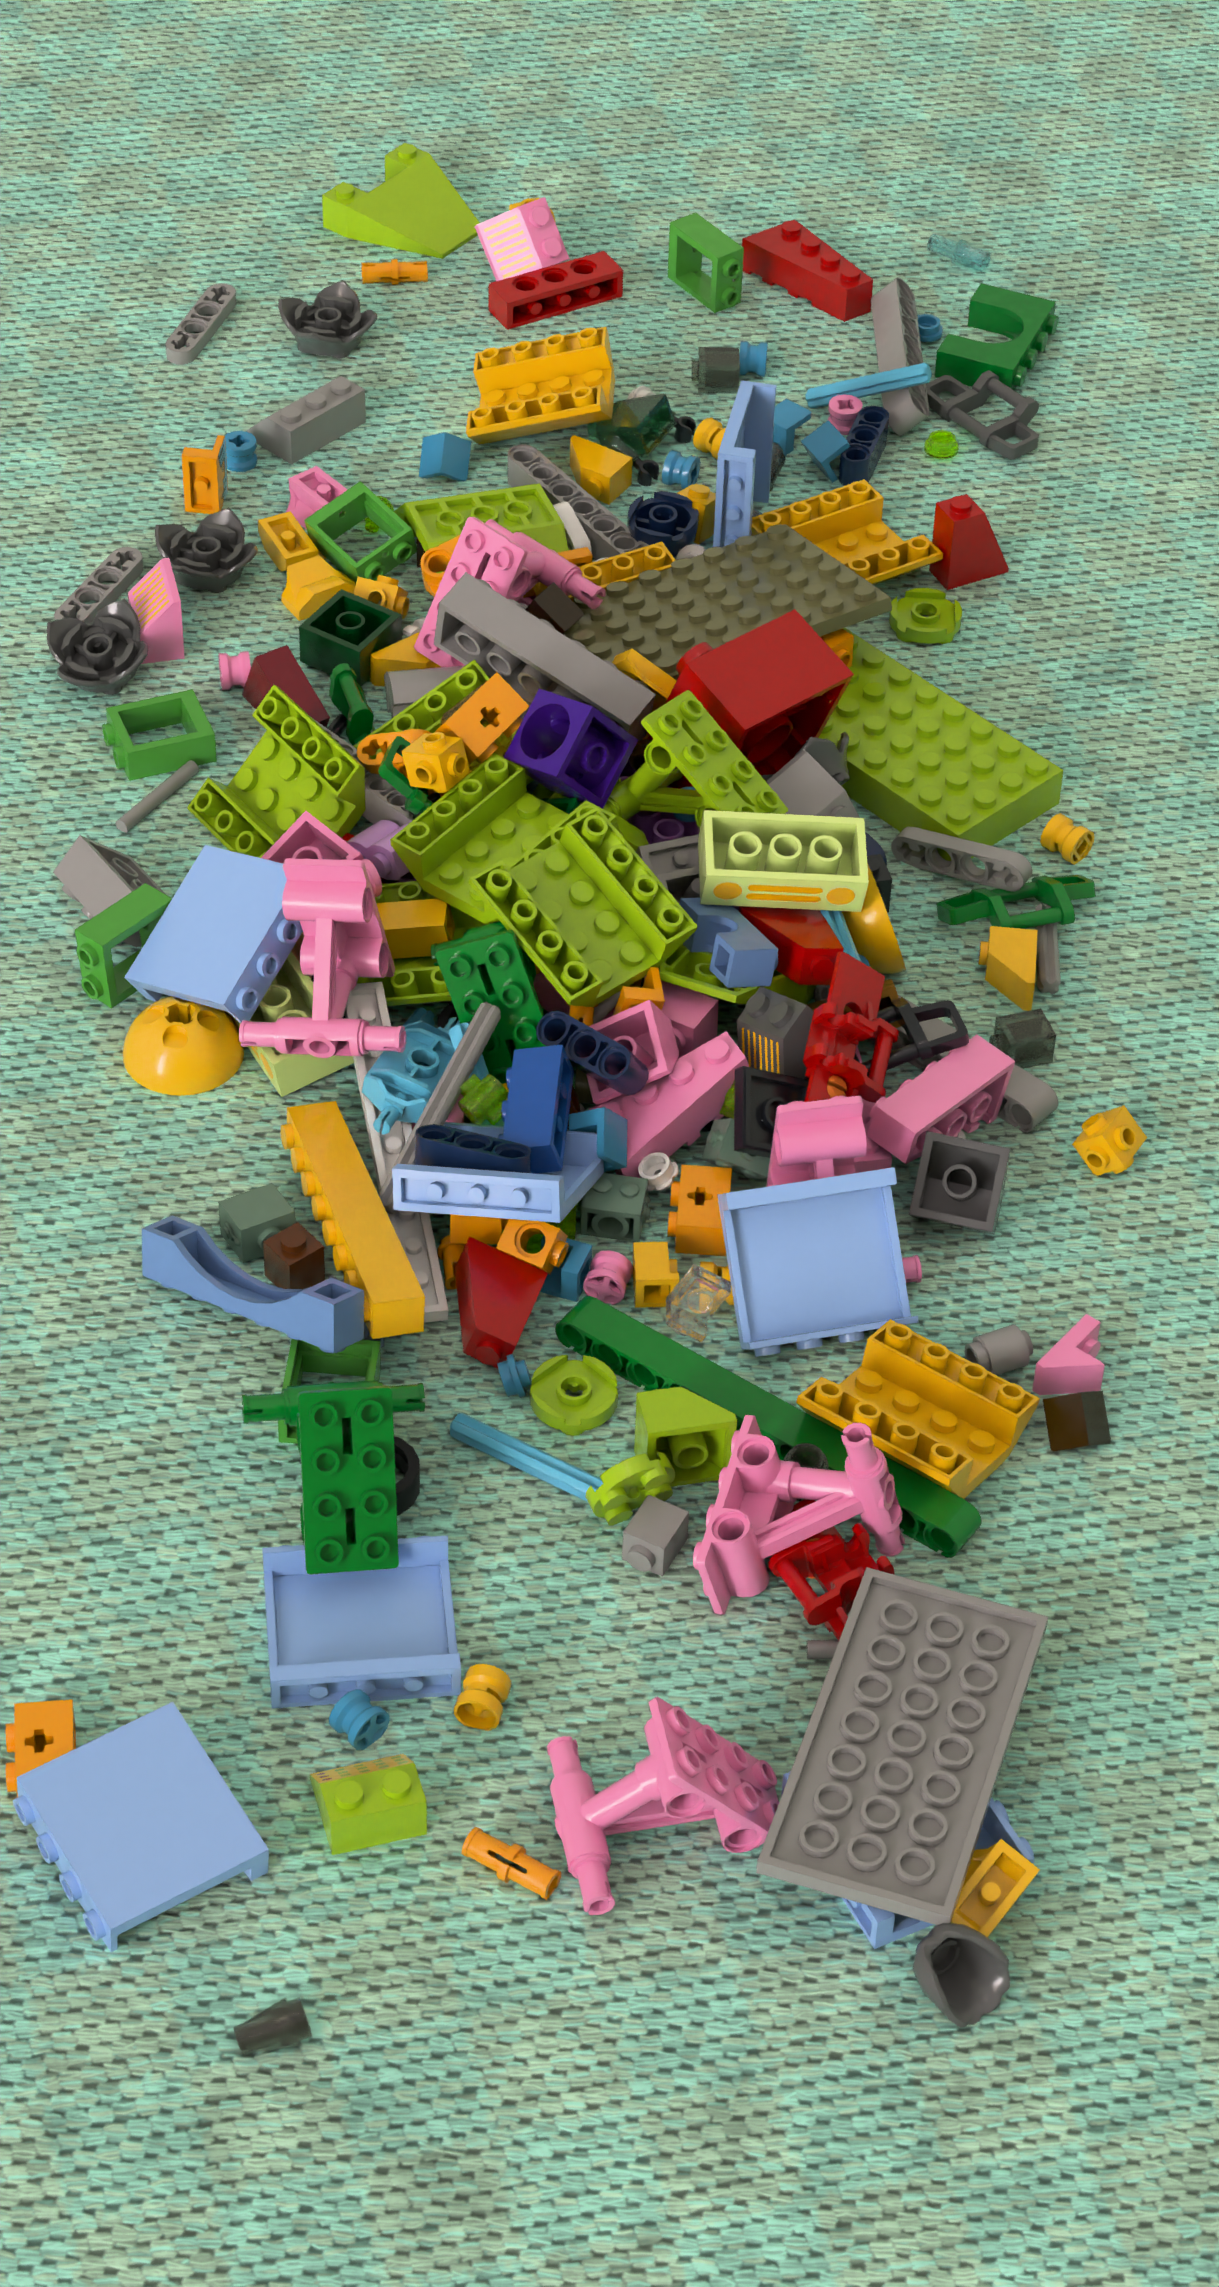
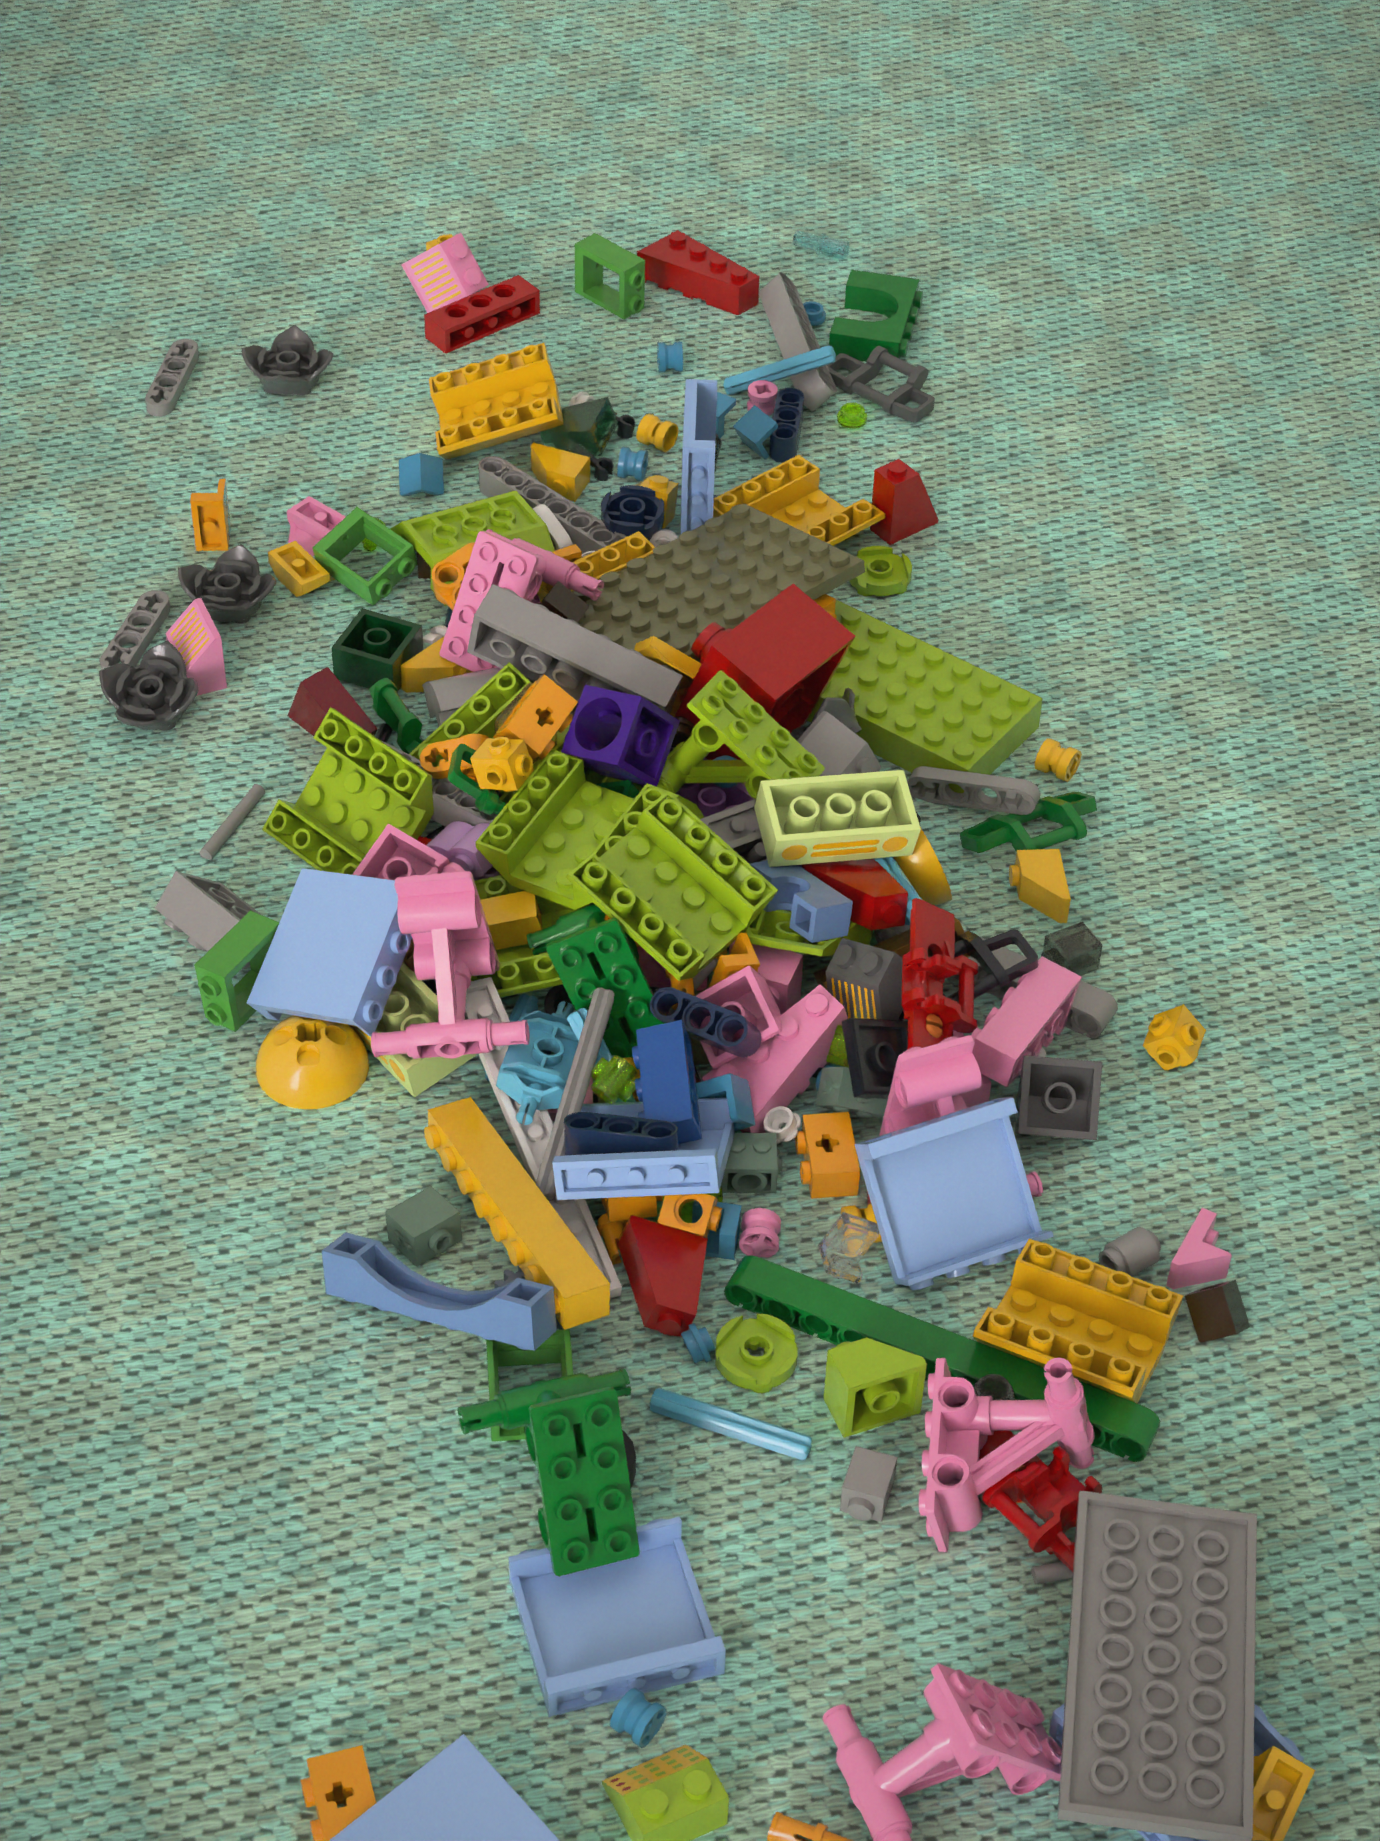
camera: 10 degrees left, 0 degrees up
(164, 754) = (229, 783): bright green window -> none
(234, 669) = (277, 694): bright pink wheel -> none
(240, 451) = (237, 489): dark azure wheel -> none
(294, 1258) = (467, 1258): reddish brown brick -> none
(312, 420) = (293, 455): light grey slope -> none
(312, 585) = (332, 608): yellow slope -> none
(384, 593) = (397, 603): yellow brick -> none
(394, 272) = (334, 312): light orange pin -> none
(408, 212) = (333, 257): lime wedge -> none
(486, 1690) = (749, 1671): yellow wheel -> none
(629, 1484) = (837, 1439): lime plate -> none
(653, 1274) = (801, 1224): yellow brick -> none
(716, 369) = (641, 370): clear smoke brick -> none
(1047, 956) = (1072, 872): light grey axle -> none

